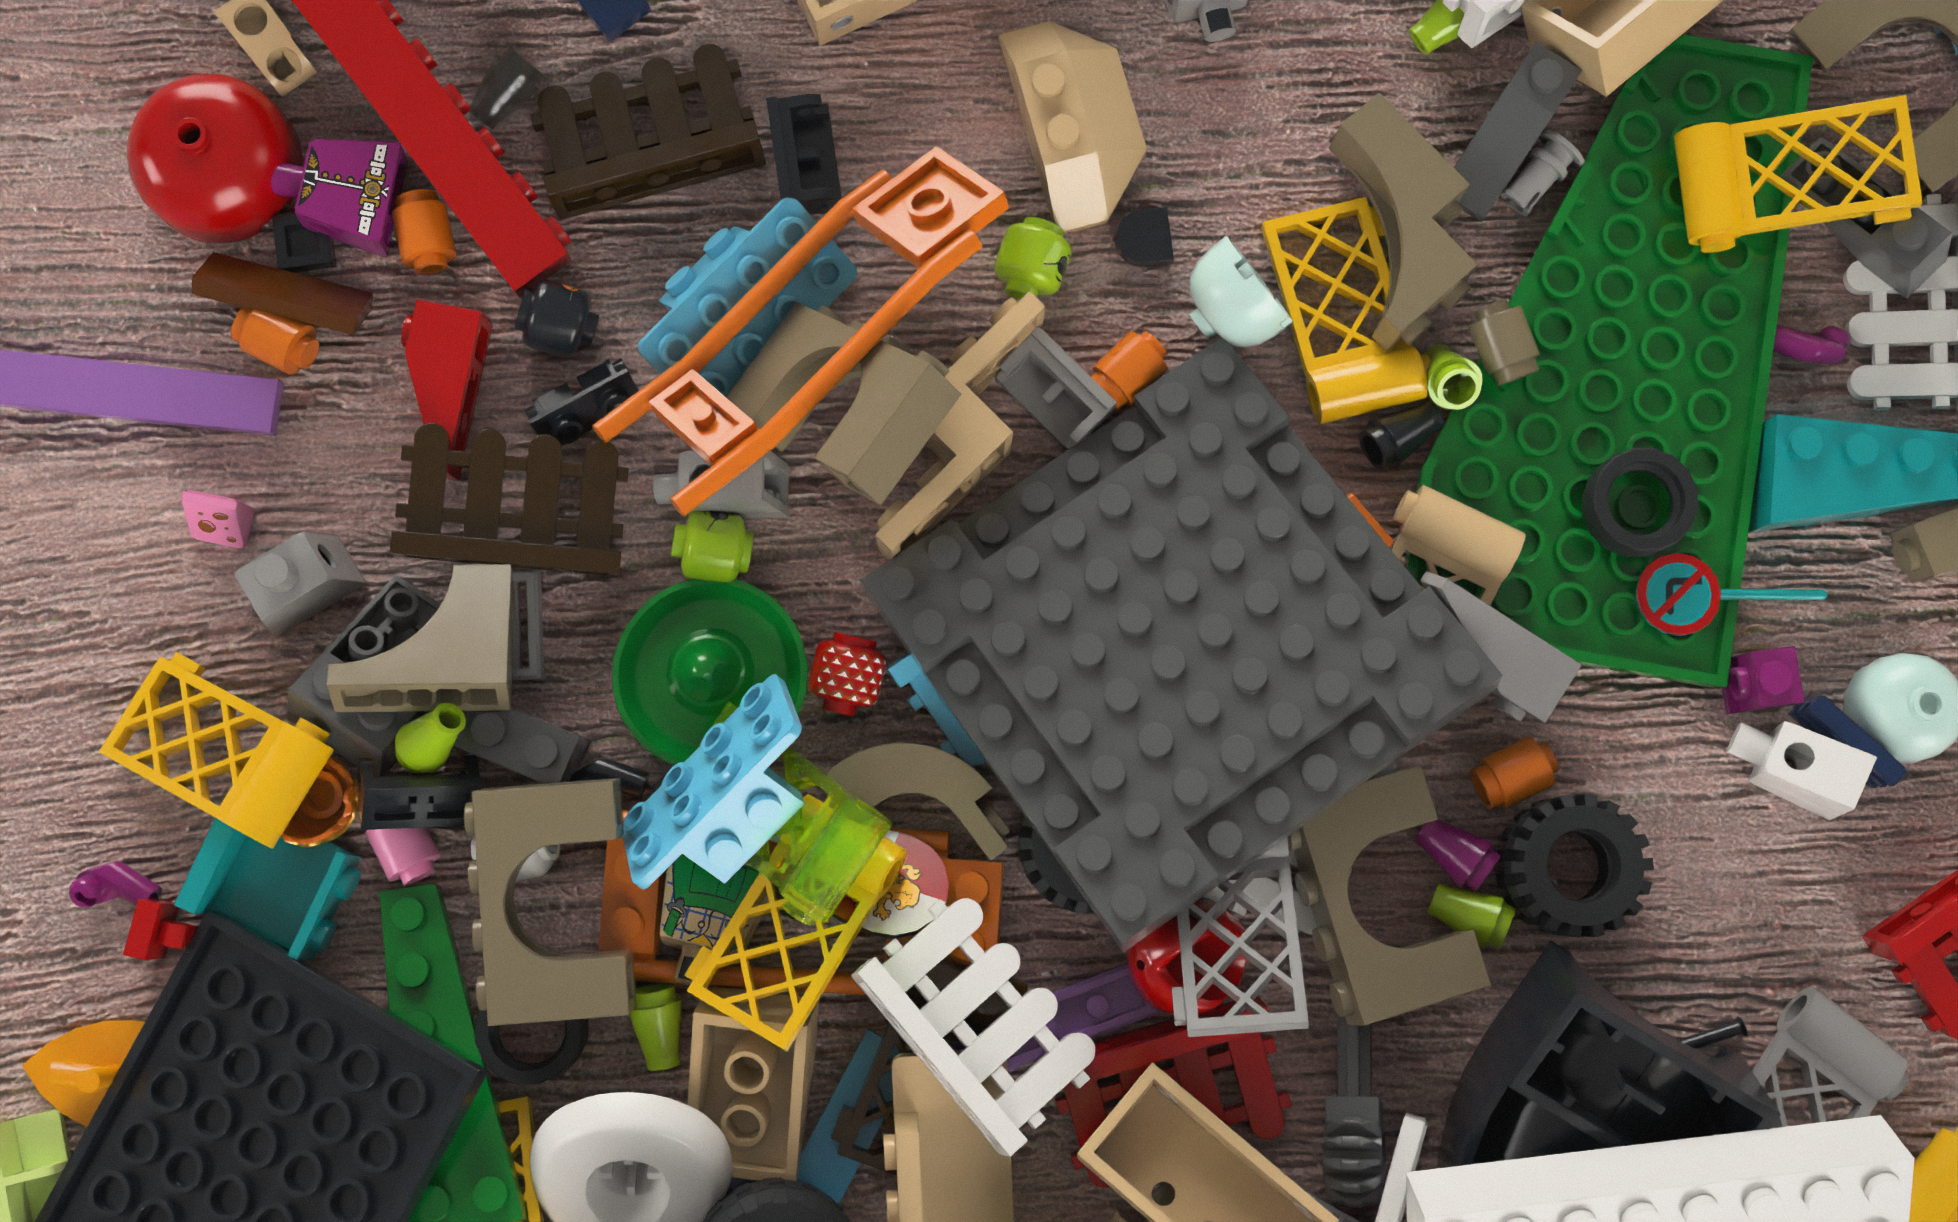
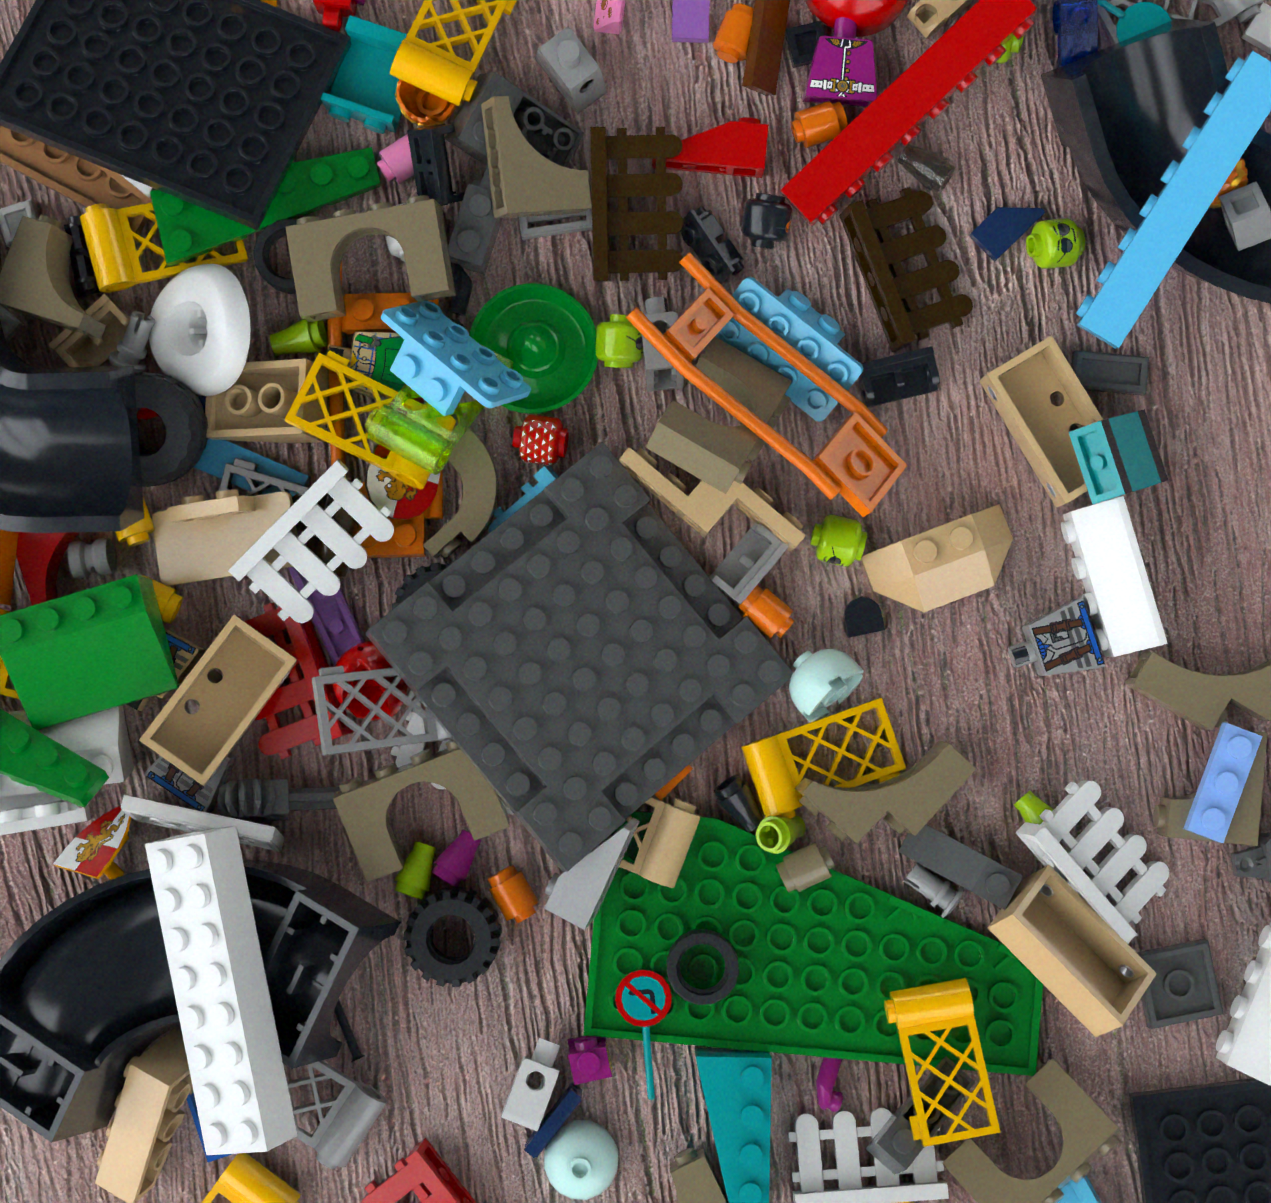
camera: 85 degrees right, 5 degrees up
(428, 740) = (469, 167): lime cone -> none

